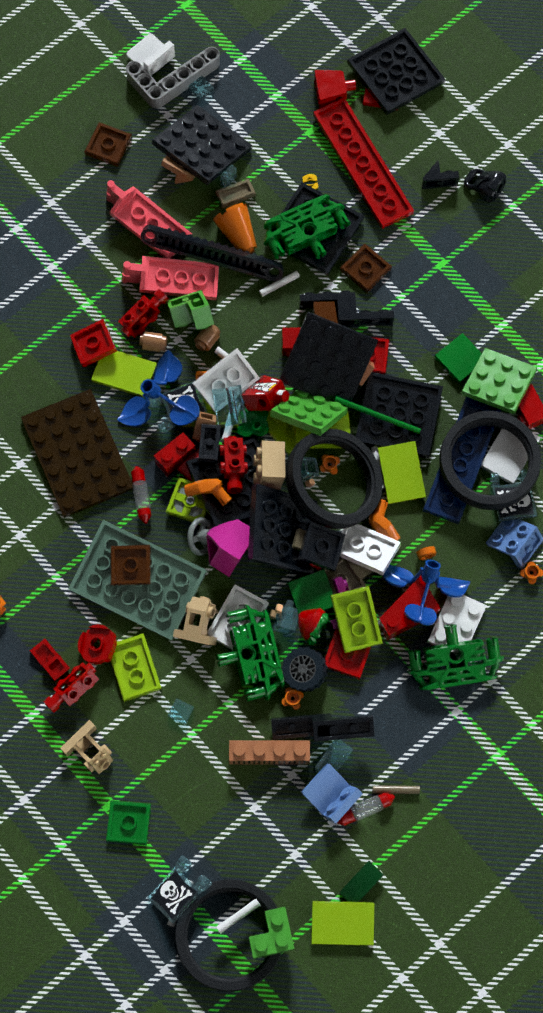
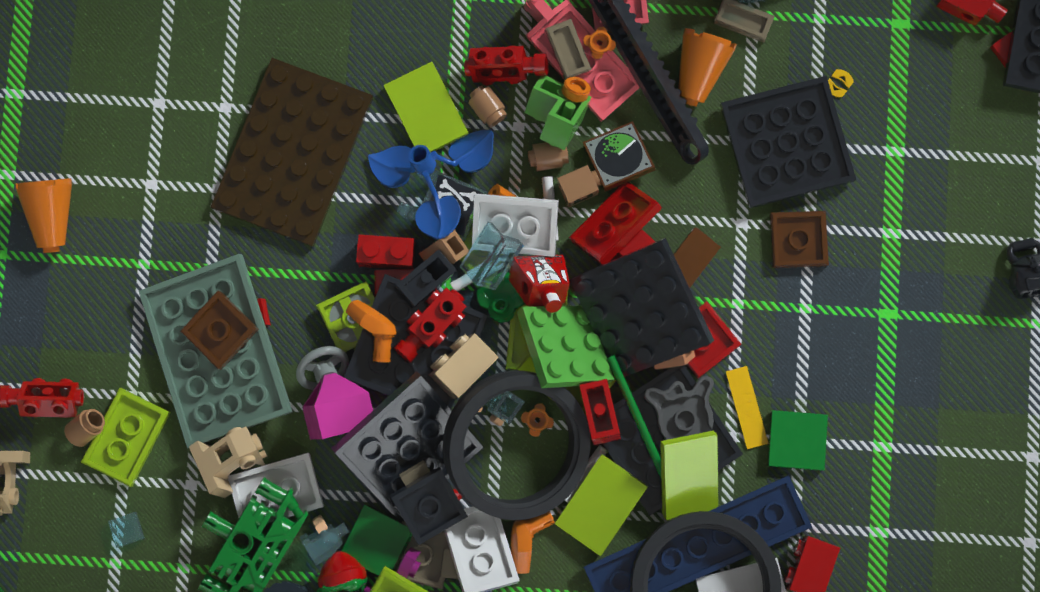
camera: 50 degrees right, 10 degrees up
(49, 659) = (52, 346): red slope -> none
(93, 343) = (422, 47): red plate -> none
(106, 649) = (122, 385): red plate -> none
(109, 679) = (84, 427): none -> medium nougat brick
(141, 494) = (310, 261): piece -> none
(167, 278) = (568, 49): none -> dark tan tile
(184, 258) = (600, 35): none -> orange plate
(190, 291) = (576, 89): none -> orange tile
(236, 337) = (579, 185): none -> medium nougat brick
(241, 307) = (618, 156): none -> tile
(272, 337) = (615, 223): none -> red tile
(274, 286) = (682, 166): white piece -> none
(301, 219) = (795, 121): green piece -> none
(346, 309) = (728, 266): black bracket -> none
(357, 425) = (600, 411): none -> red brick
(363, 163) = (918, 116): red plate -> none
(397, 393) = (682, 411): none -> dark grey tile
(422, 366) = (747, 407): none -> yellow piece
(428, 416) = (689, 474): none -> lime tile
(435, 179) = (979, 211): black slope -> none
(499, 381) = (808, 510): bright green plate -> none

